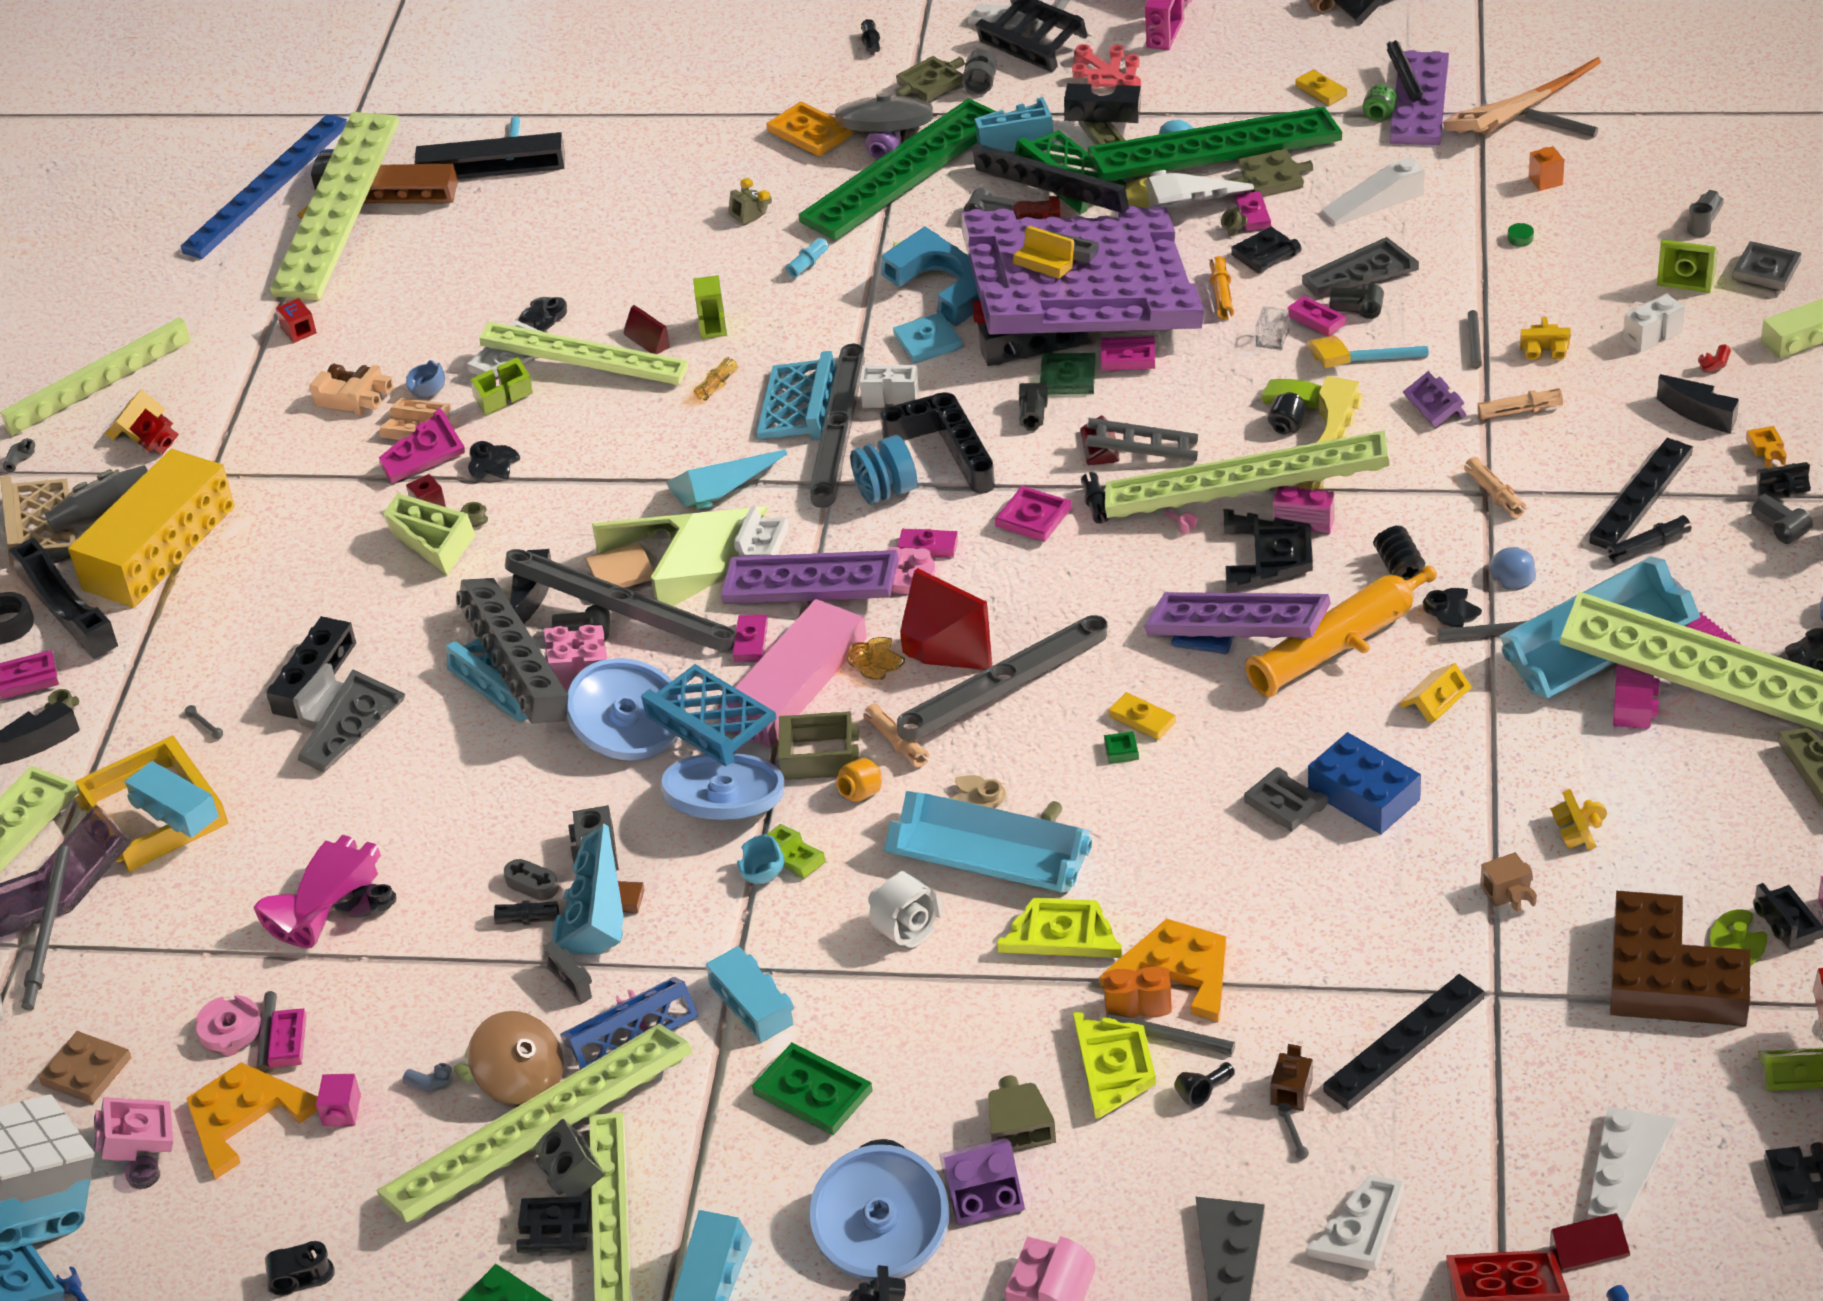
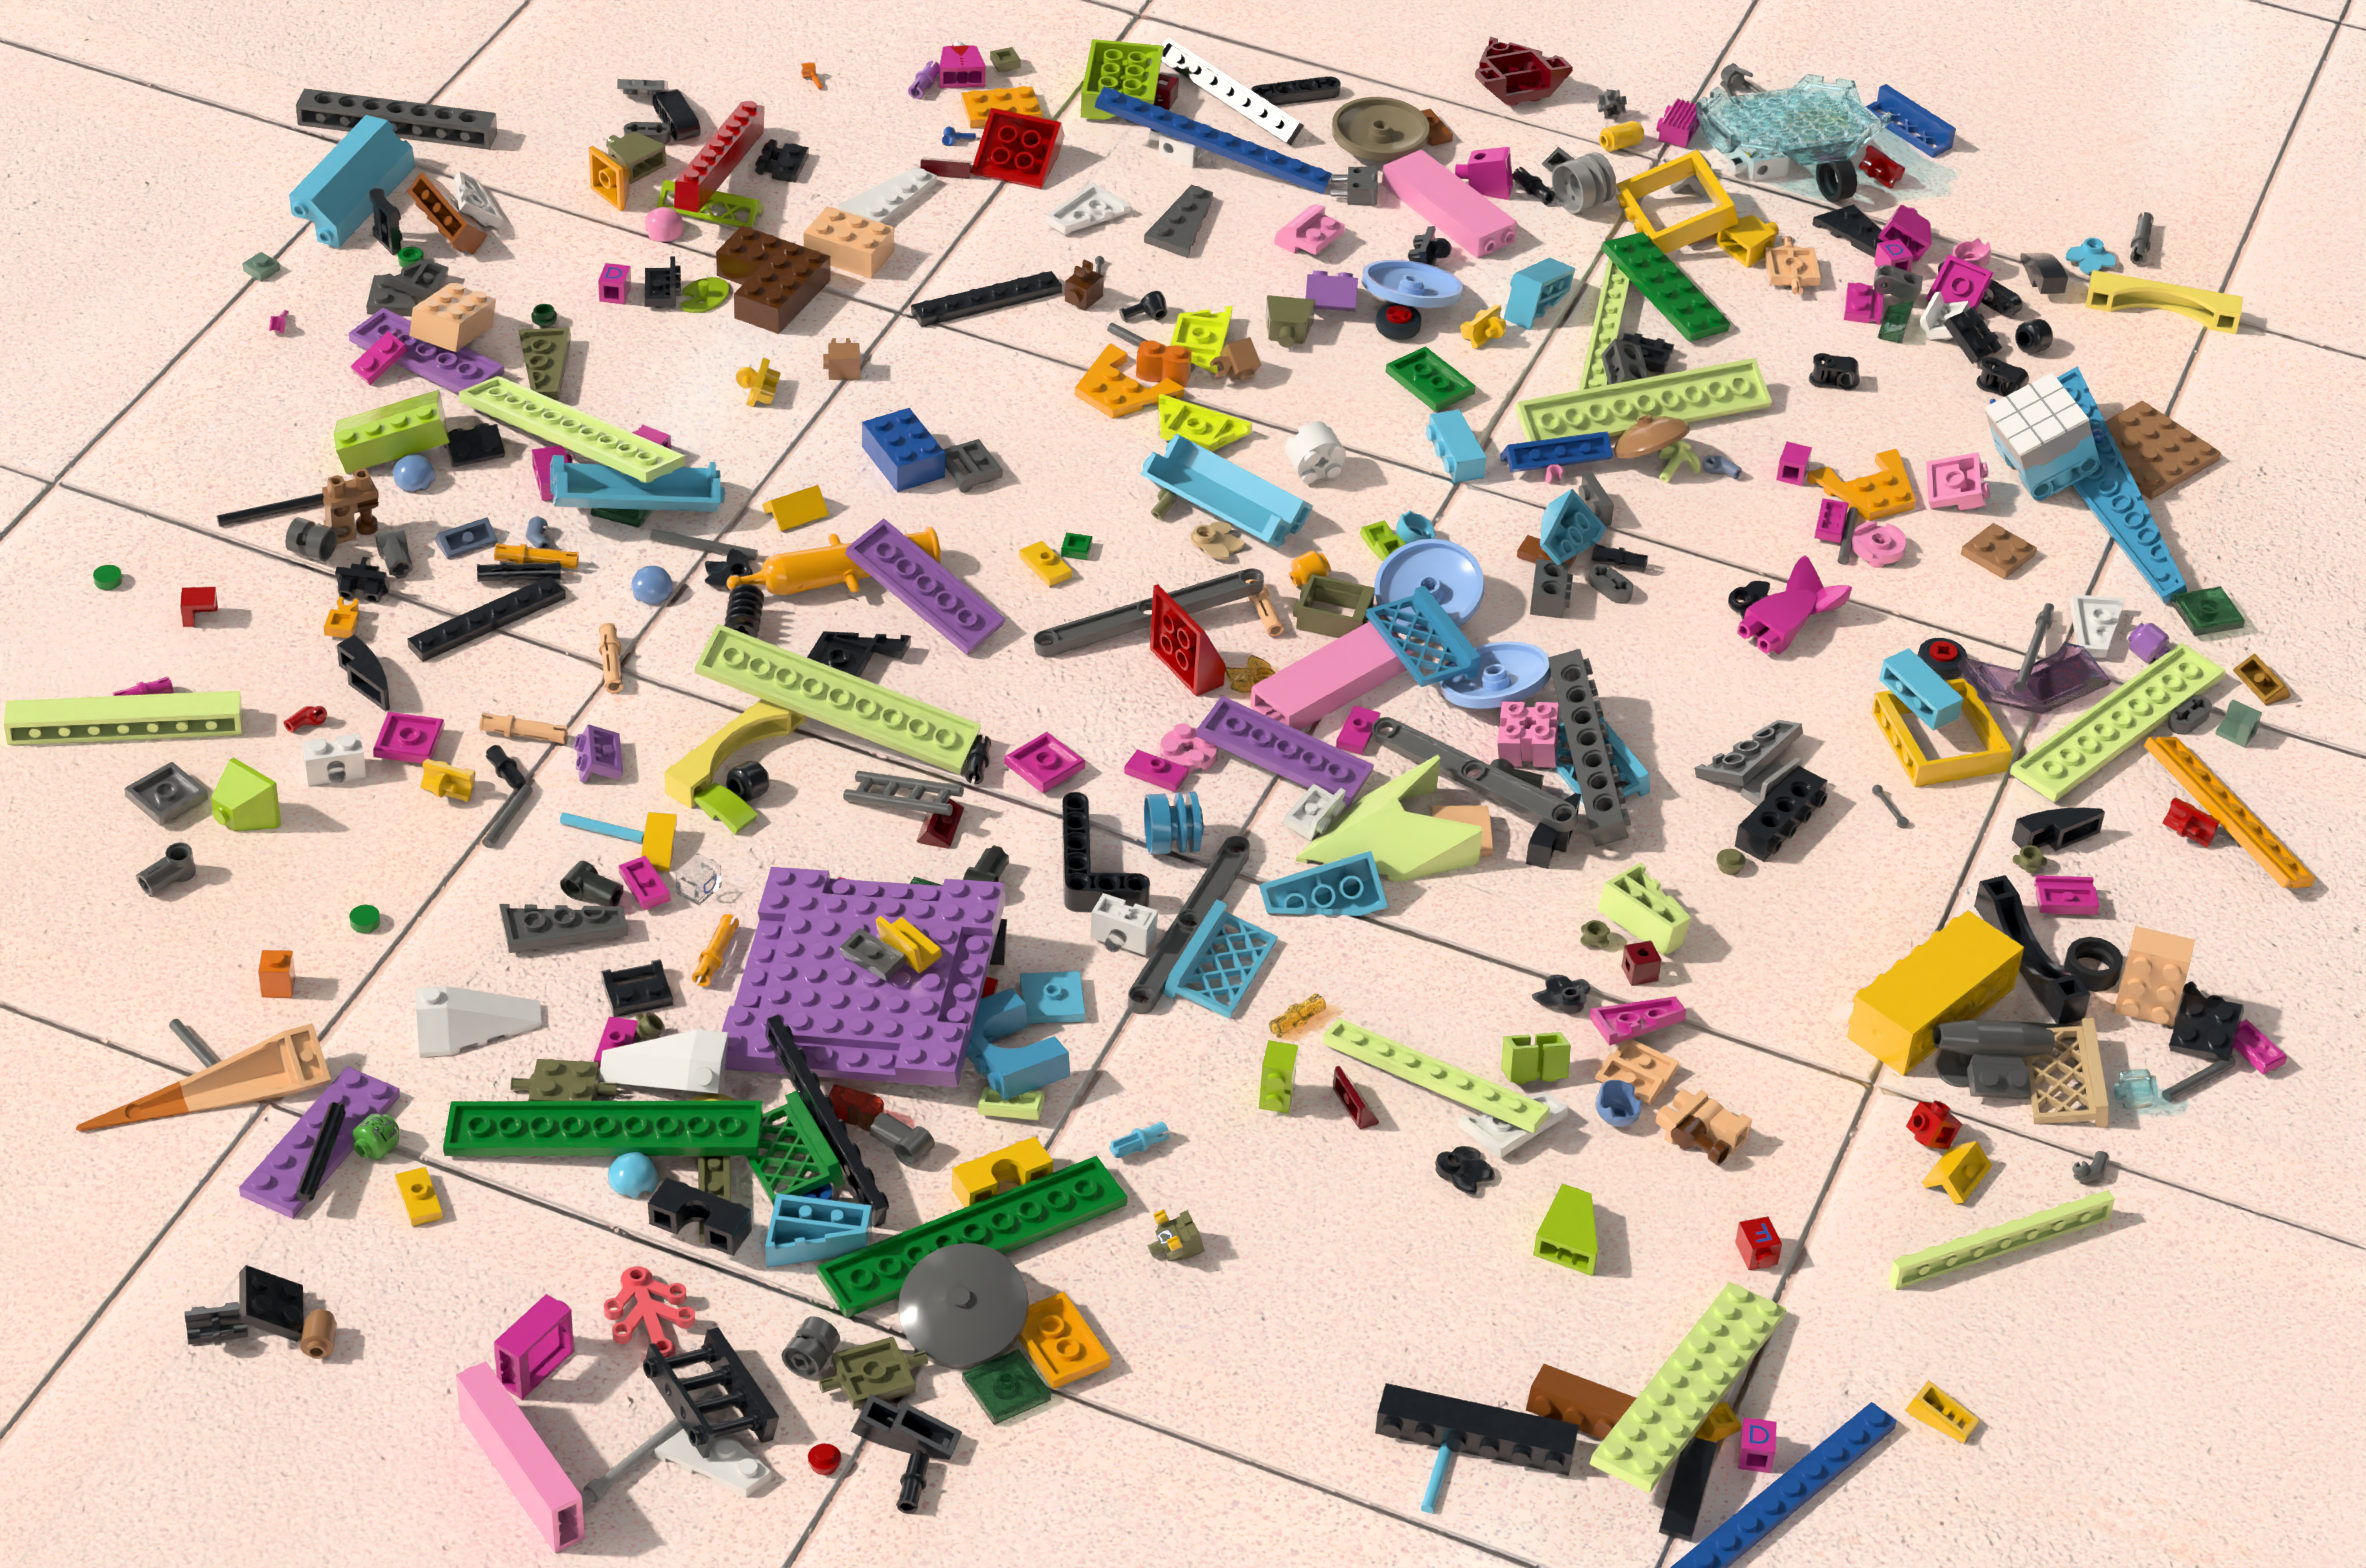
camera: 170 degrees left, 0 degrees up
(149, 263) = (1924, 1409): none -> yellow slope
(151, 893) = (1942, 656): none -> black wheel
(283, 201) = (1757, 1445): none -> dark pink brick
(358, 615) = (1730, 861): none -> olive plate
(449, 287) = (1569, 1231): none -> lime slope
(763, 1204) = (1484, 326): none -> yellow hips
(832, 96) = (1006, 1386): none -> clear green plate
(888, 215) = (1018, 1163): none -> yellow arch
(889, 56) = (905, 1429): none -> black slope
(937, 34) = (824, 1458): none -> red plate
(1050, 1021) = (1238, 360): none -> medium nougat brick
(1507, 369) = (505, 767): none -> black axle
(1611, 366) = (408, 737): none -> dark pink plate
(1617, 1050) = (851, 241): none -> light nougat brick
(1670, 553) = (525, 554): none -> light orange pin
(1733, 564) = (466, 538): none -> sand blue slope

